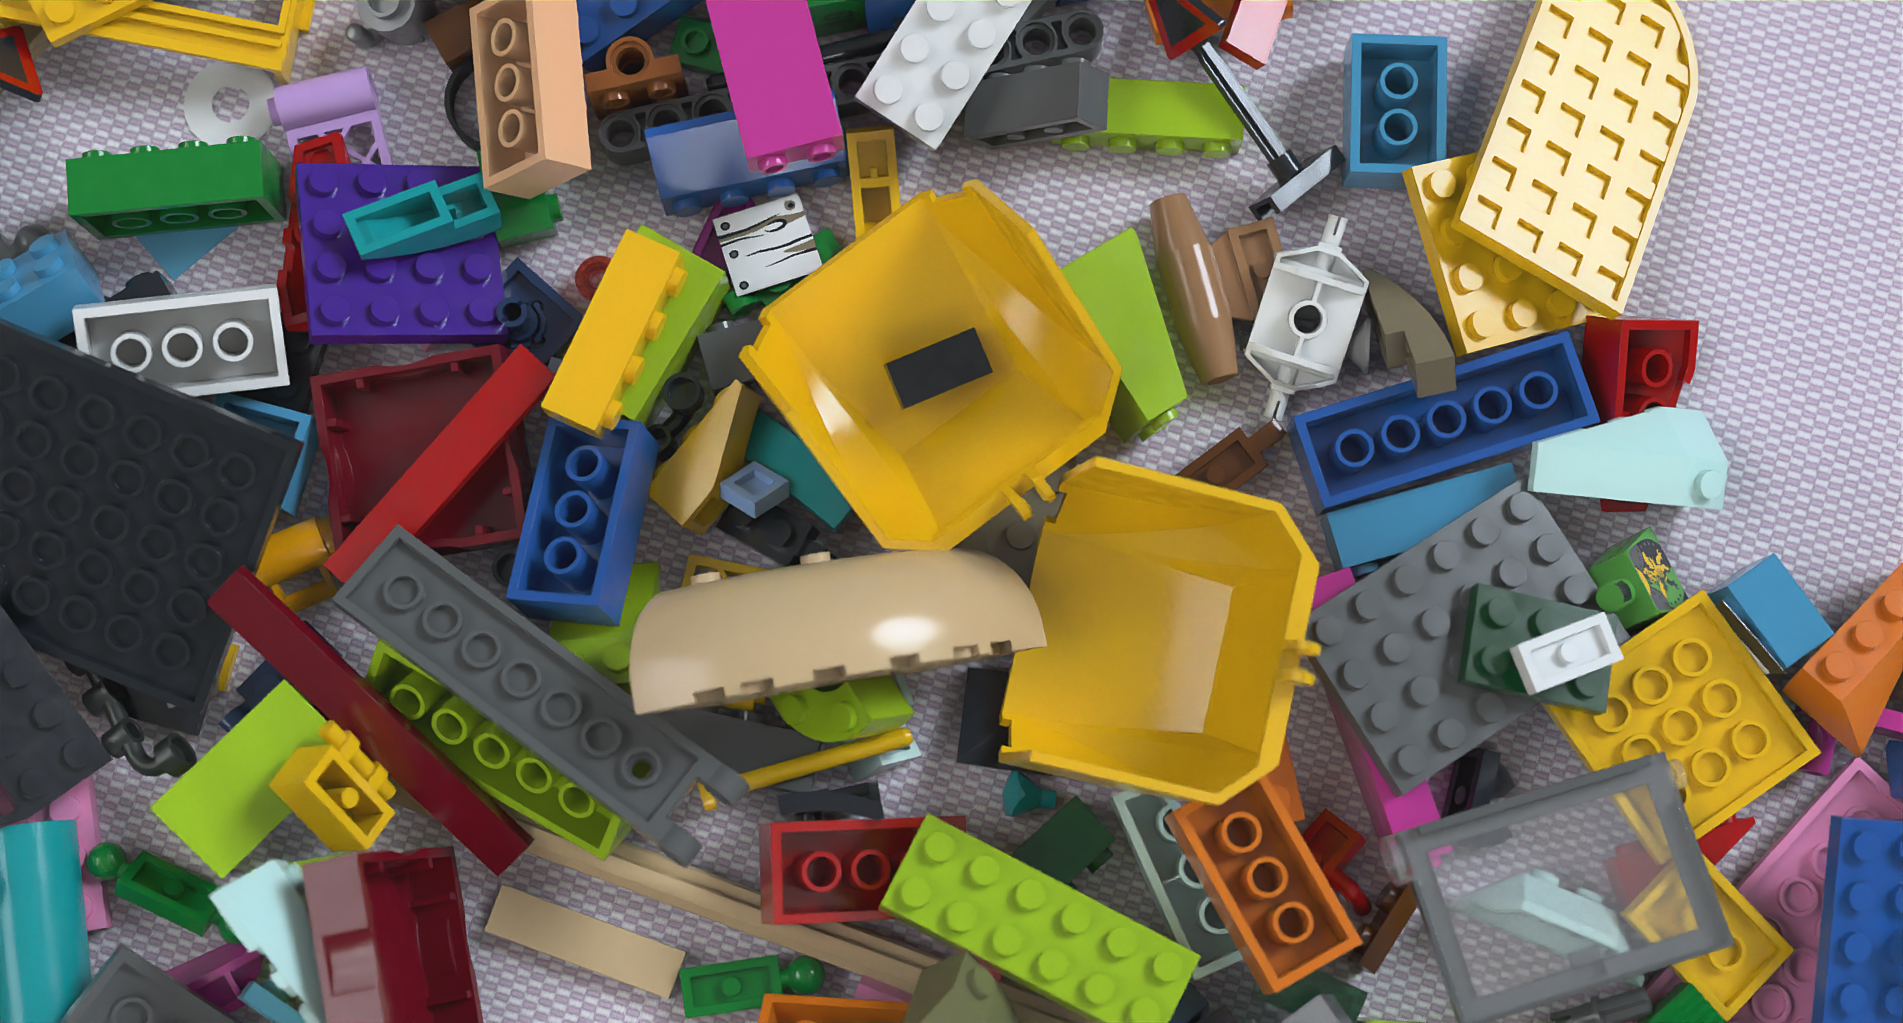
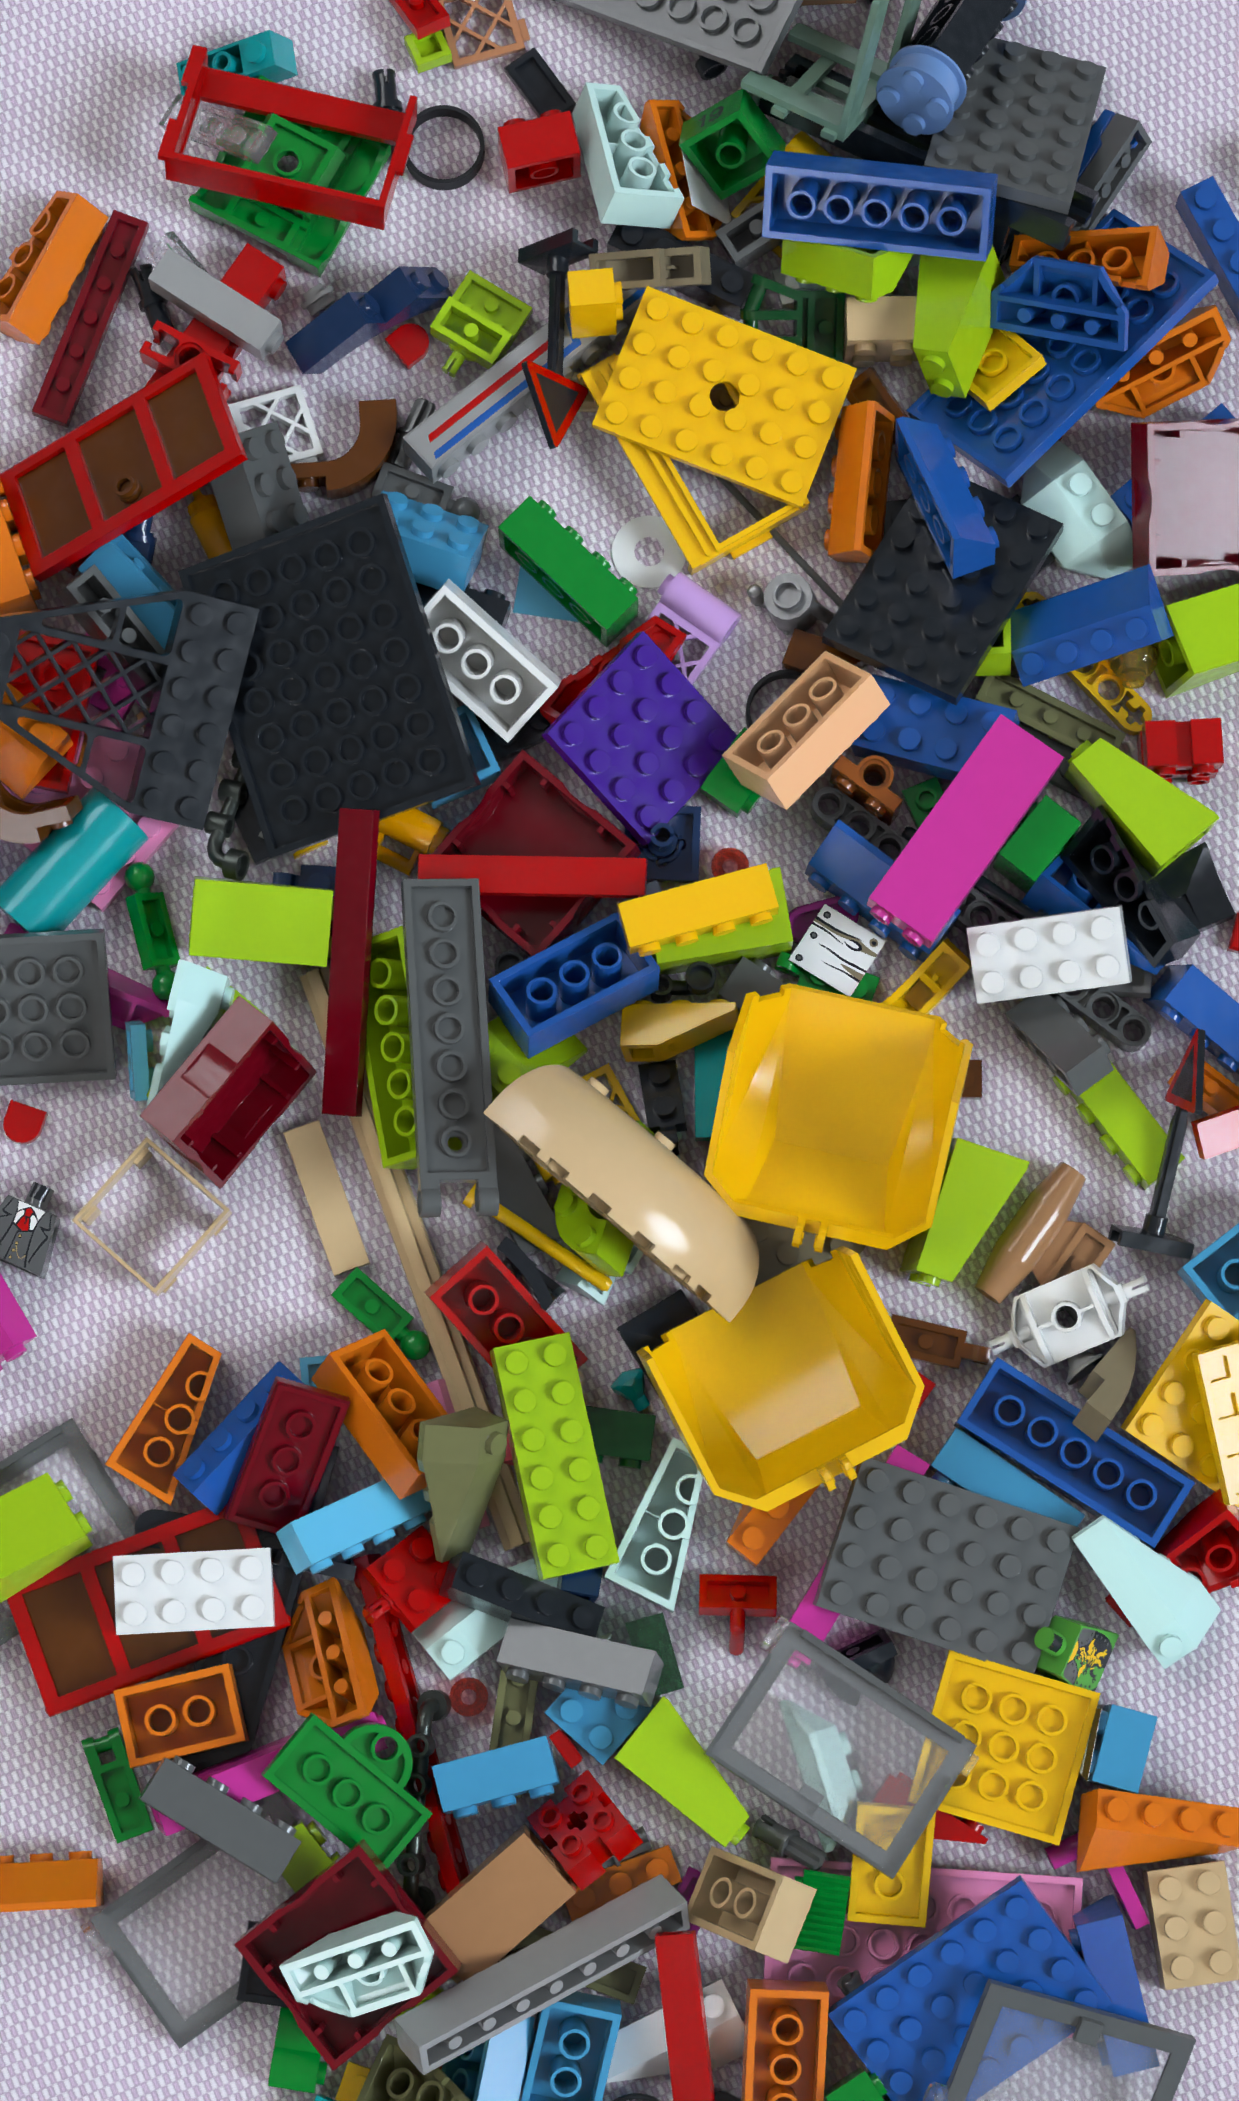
camera: 50 degrees right, 0 degrees up
(337, 790) = (294, 977): yellow brick -> none
(424, 218) = (673, 736): teal slope -> none
(754, 489) = (678, 1069): light blue plate -> none
(938, 368) = (844, 1117): black tile -> none
(1264, 884) = (695, 1566): orange brick -> none
(1378, 937) = (719, 1670): reddish brown plate -> none
(1508, 618) = (974, 1618): dark green plate -> none
(1566, 653) = (981, 1633): white plate -> none

